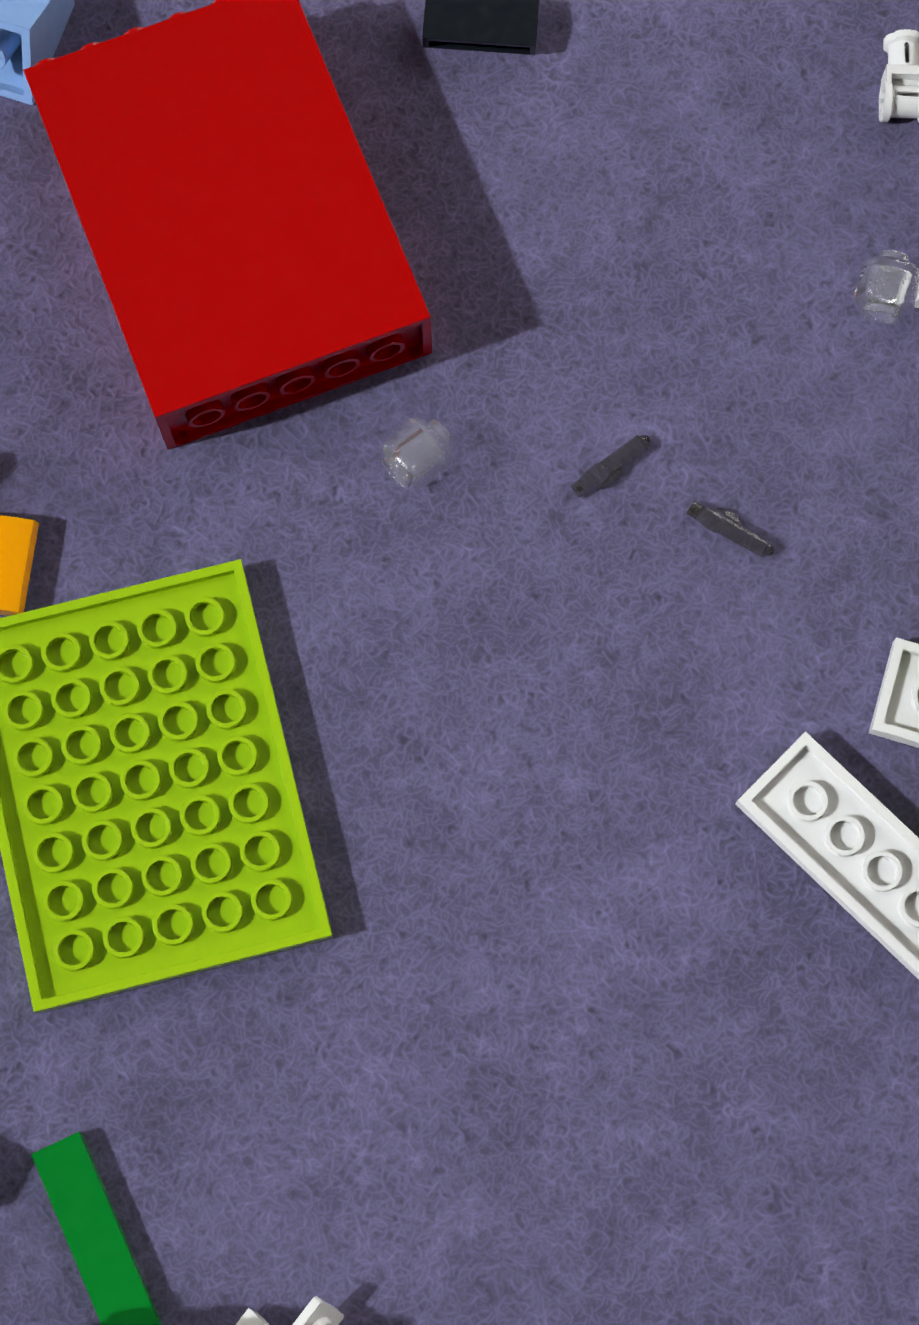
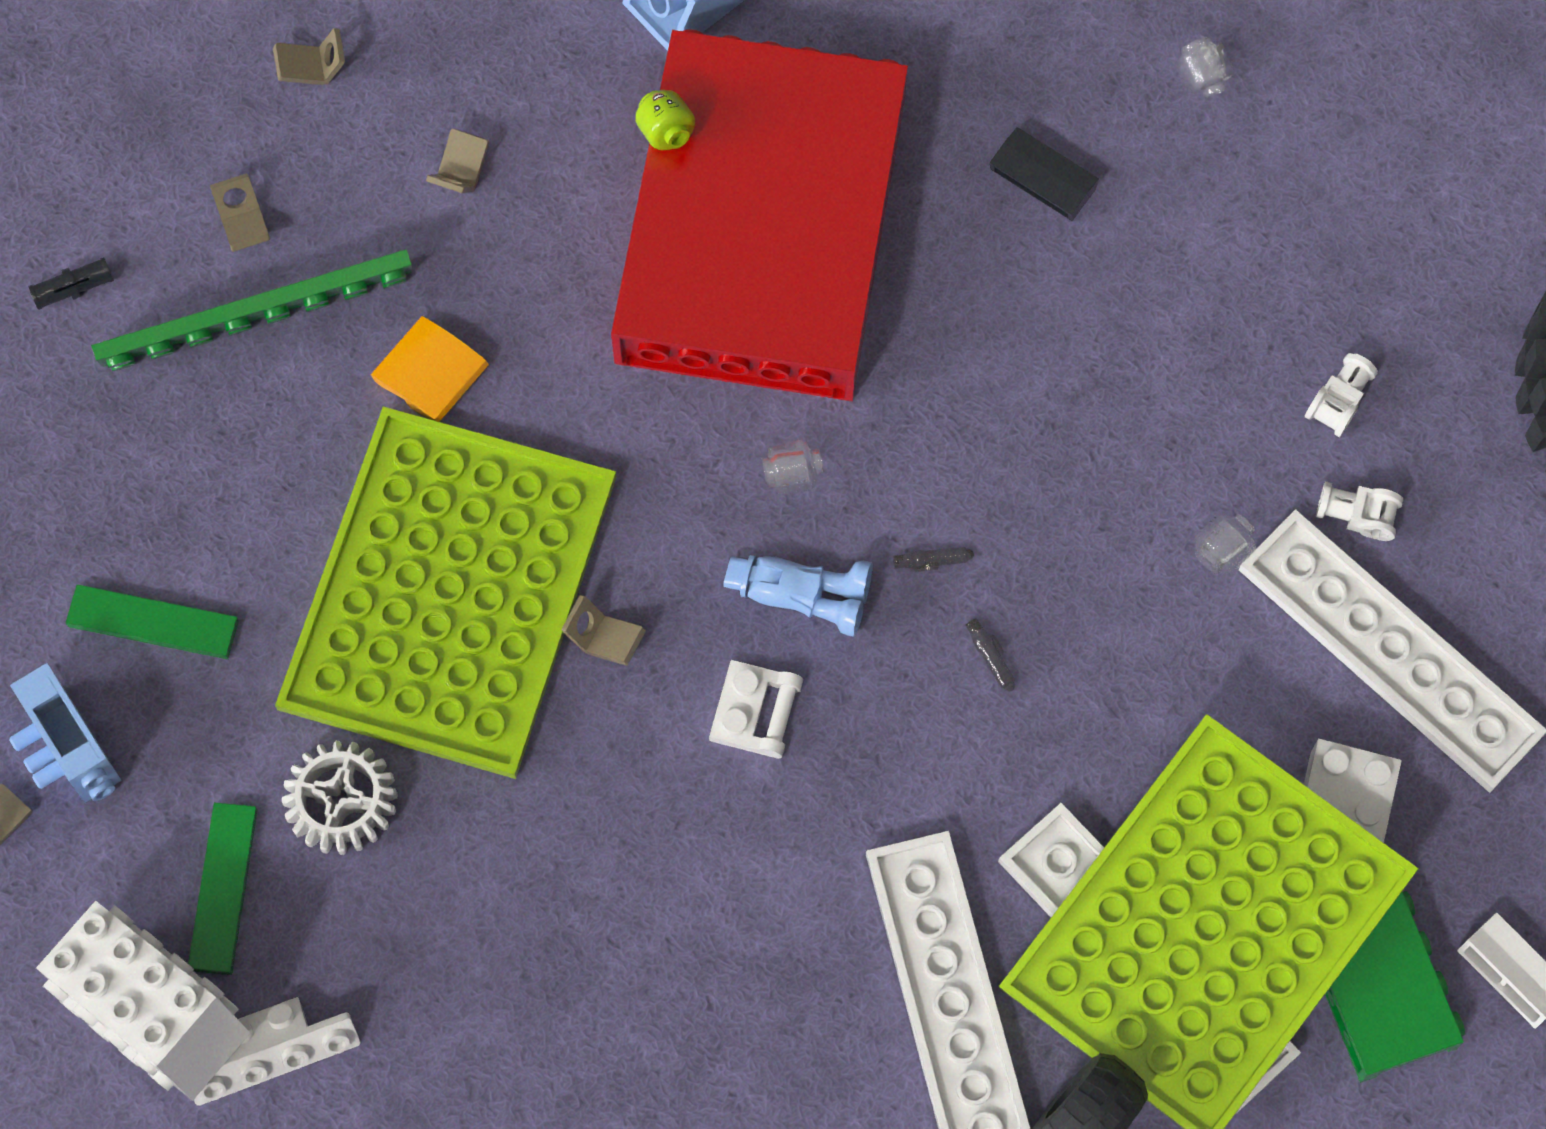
camera: 30 degrees right, 5 degrees down
(76, 163) = (665, 119): none -> lime head
(170, 1093) = (332, 831): none -> white gear
(333, 734) = (605, 635): none -> dark tan bracket
(499, 570) = (800, 588): none -> light blue piece
(517, 725) = (742, 704): none -> white plate

